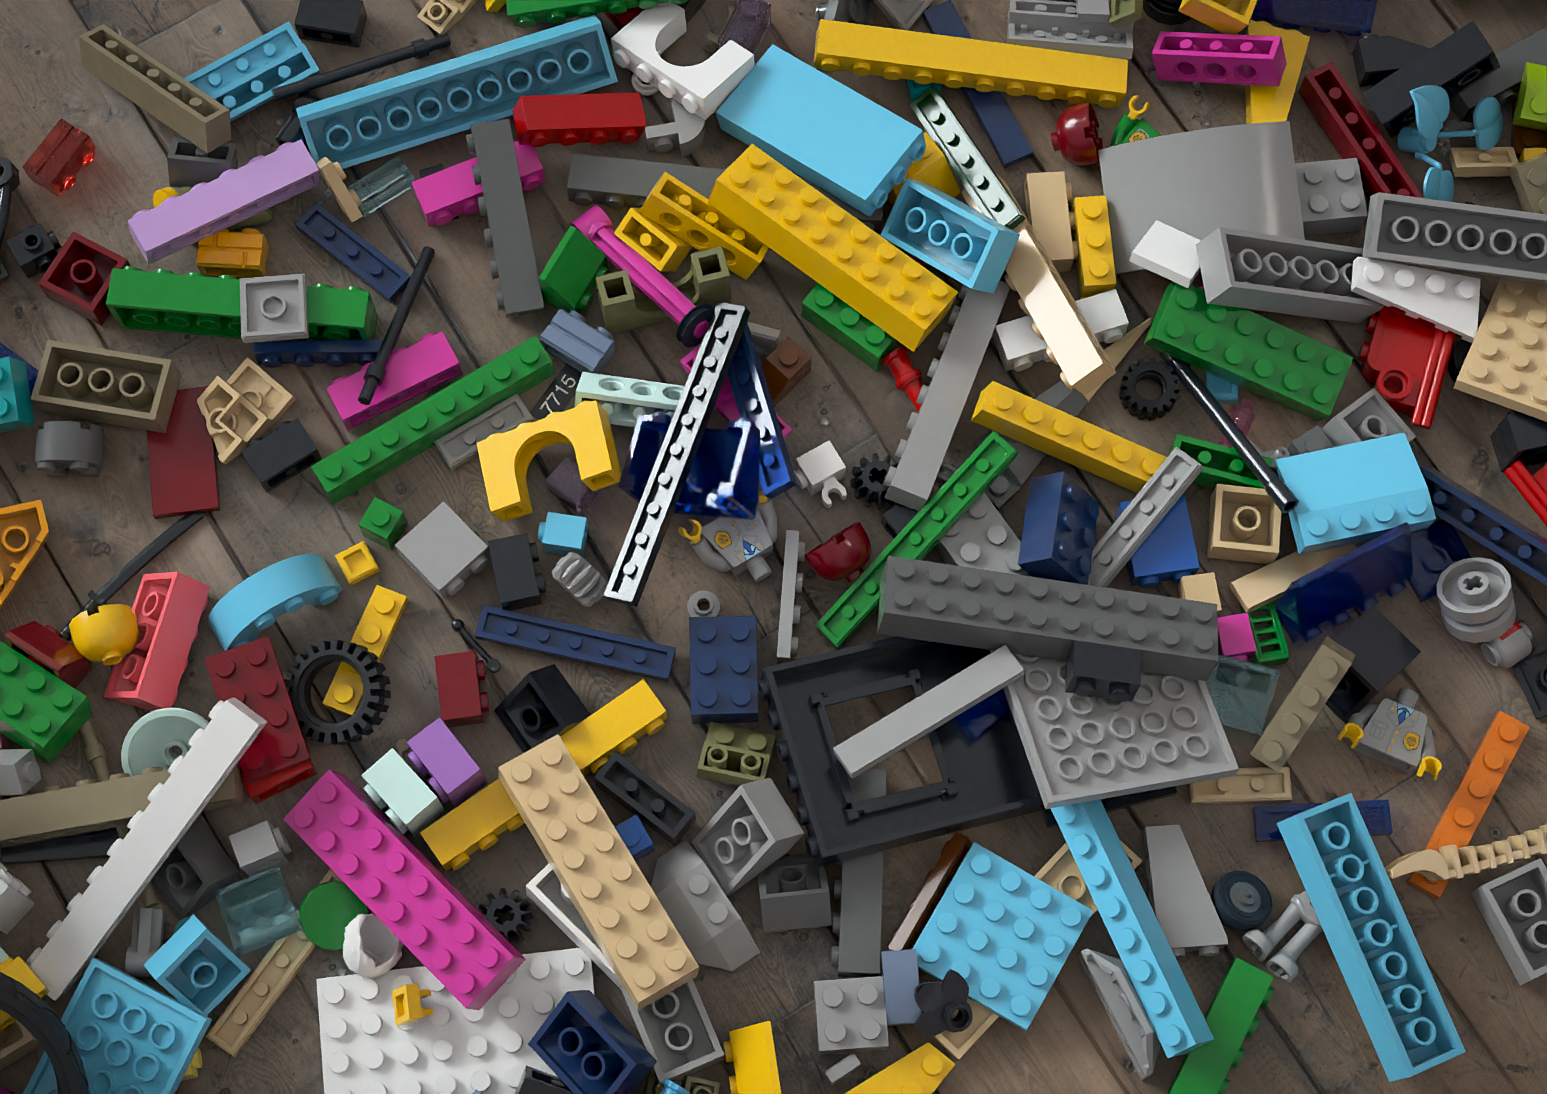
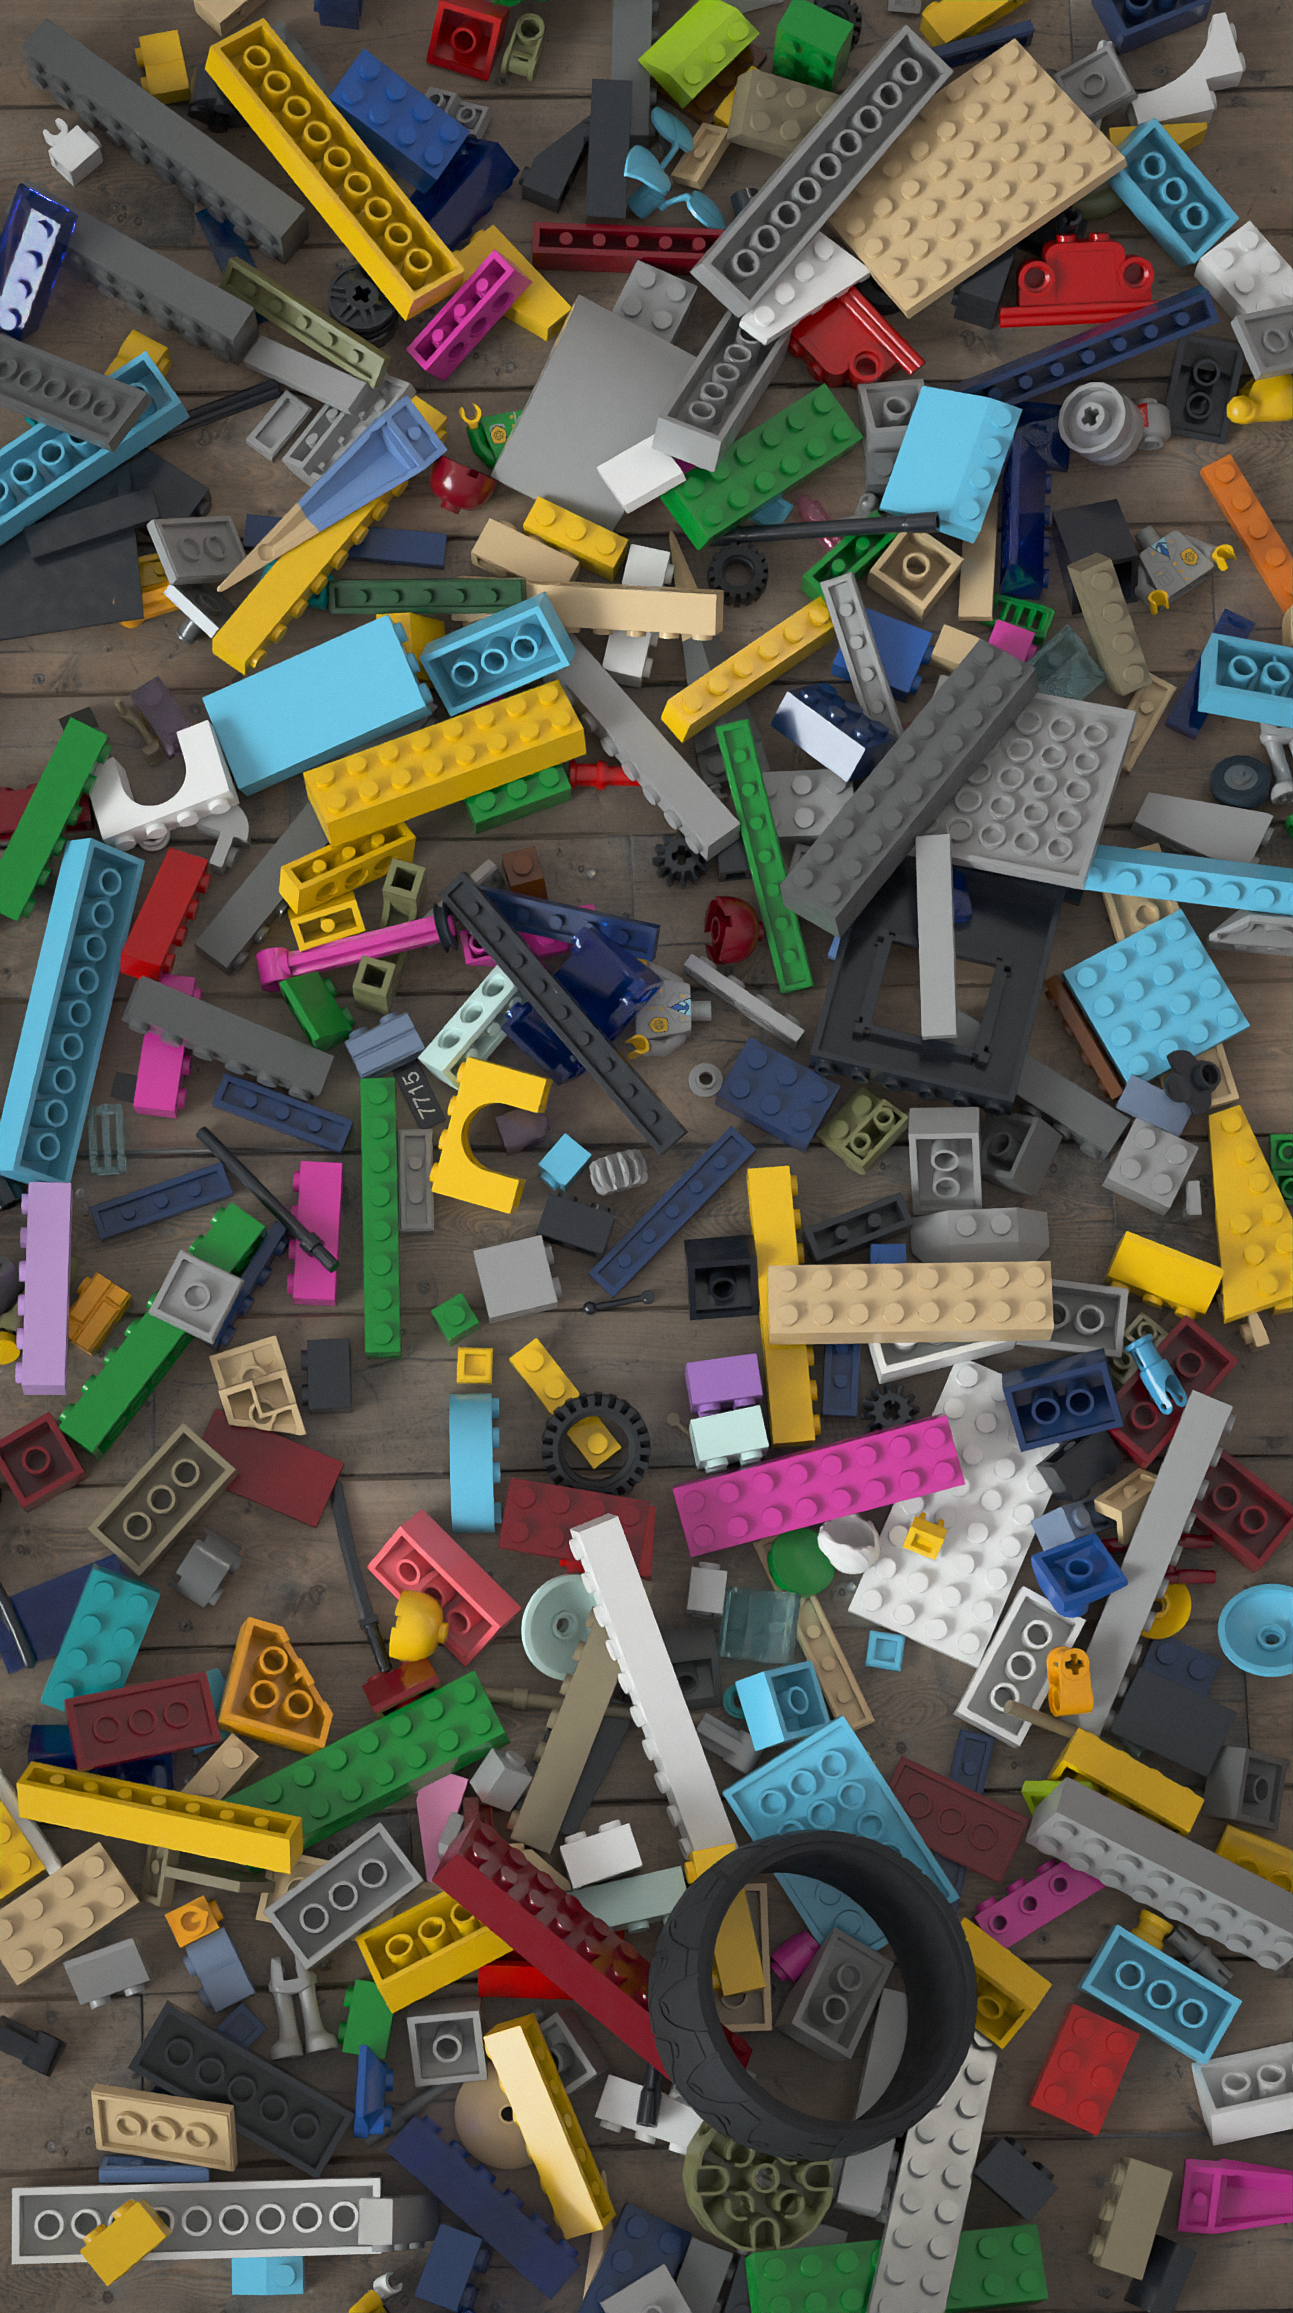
camera: 65 degrees left, 5 degrees up
(299, 1031) = (885, 1651): none -> medium azure tile
(347, 200) = (103, 1177): tan plate -> none
(460, 689) = (656, 1336): dark red brick -> none
(478, 300) = (283, 1113): none -> dark blue plate
(509, 861) = (840, 1380): none -> dark blue plate
(820, 471) = (641, 901): white brick -> none
(1051, 57) = (381, 458): none -> medium blue plate
(1103, 671) = (989, 769): black brick -> none

